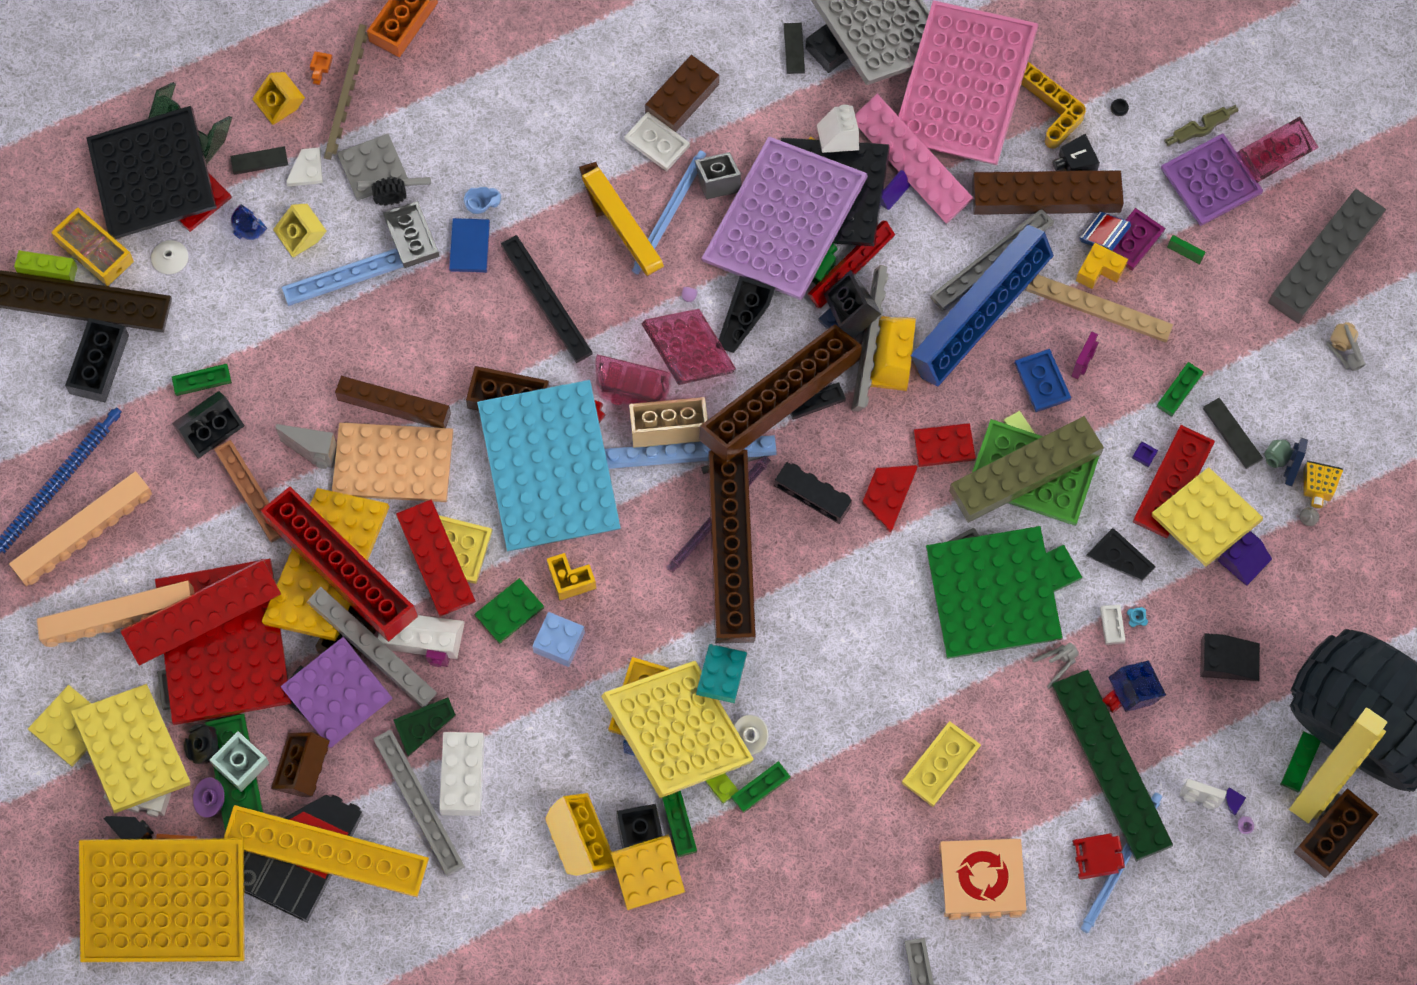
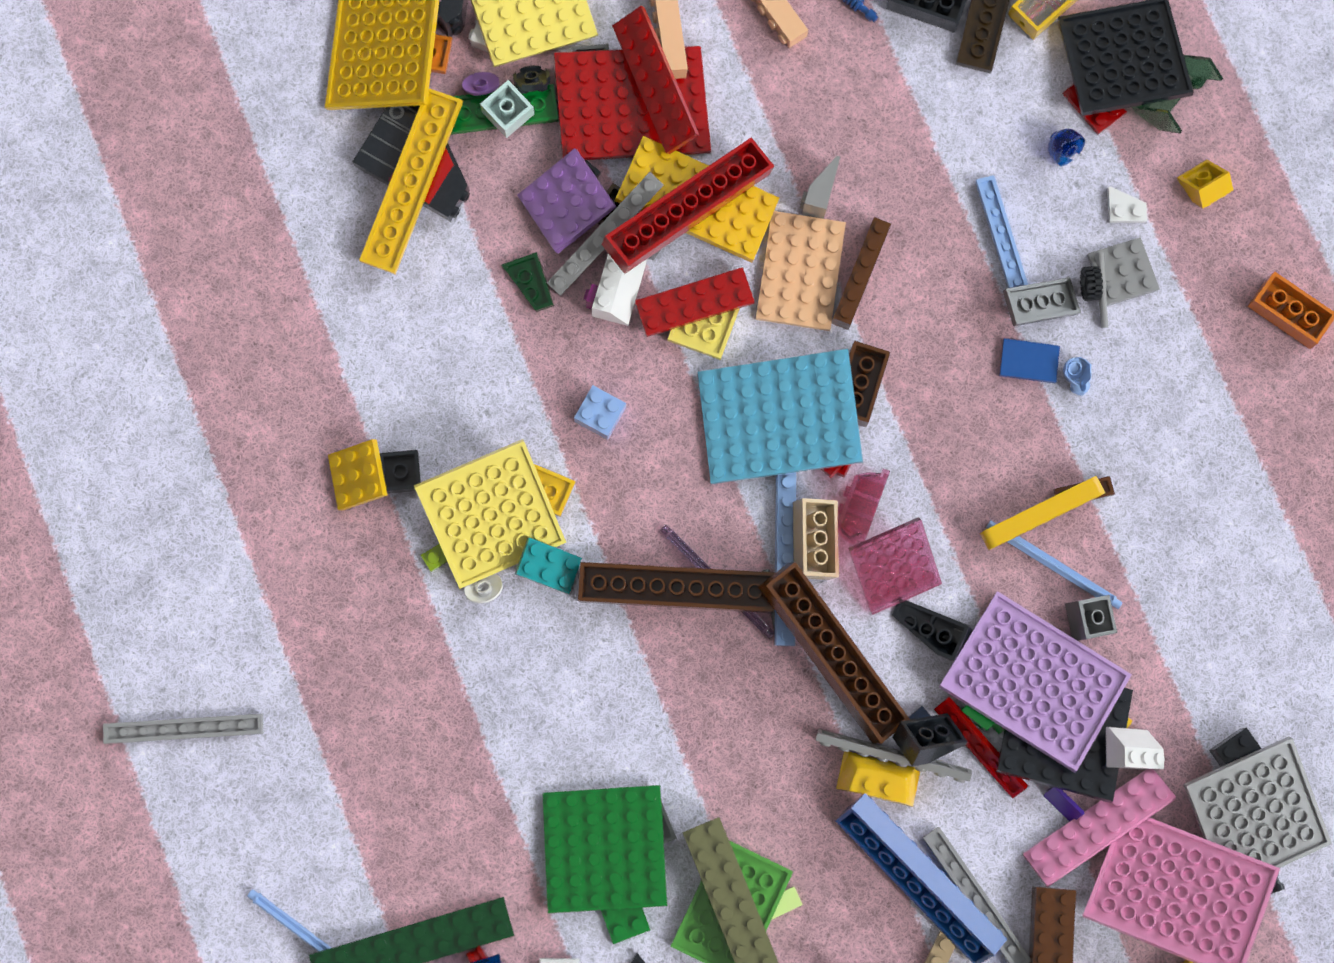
camera: 90 degrees right, 10 degrees up
(170, 264) = (1032, 80): white dish -> none
(201, 379) = (901, 96): green plate -> none
(208, 424) = (853, 99): black slope -> none
(246, 485) = (795, 129): nougat plate -> none
(259, 160) = (1136, 162): pearl dark grey tile -> none
(299, 229) = (1057, 196): light yellow slope -> none
(300, 764) = (503, 167): reddish brown slope -> none
(320, 64) = (1242, 226): orange plate -> none
(349, 83) = (1200, 248): dark tan plate -> none
(419, 803) = (454, 271): light grey plate -> none
(462, 774) = (476, 312): white brick -> none
(509, 611) = (636, 369): green plate -> none
(546, 299) = (964, 431): black plate -> none
(568, 581) = (657, 425): yellow brick -> none
(579, 835) = (399, 414): yellow windscreen -> none
(657, 141) = (1135, 559): white plate -> none
(679, 824) = (398, 512): green plate -> none
(683, 93) = (1188, 590): reddish brown brick -> none
(689, 294) = (958, 575): lavender hinge -> none
(760, 787) = (431, 592): green plate -> none
(794, 48) = (1239, 716): pearl dark grey tile -> none
(813, 492) = (729, 678): black brick -> none
(823, 399) = (832, 704): black plate -> none
(888, 492) = (724, 755): red wing -> none
(941, 764) = (433, 772): light yellow plate -> none
(944, 445) = (771, 820): red plate -> none
(983, 878) = (312, 798): light nougat panel -> none
(1042, 380) = (833, 933): blue plate -> none
(1065, 653) = (533, 916): light grey plant -> none
(1099, 855) = (319, 918): red plate -> none

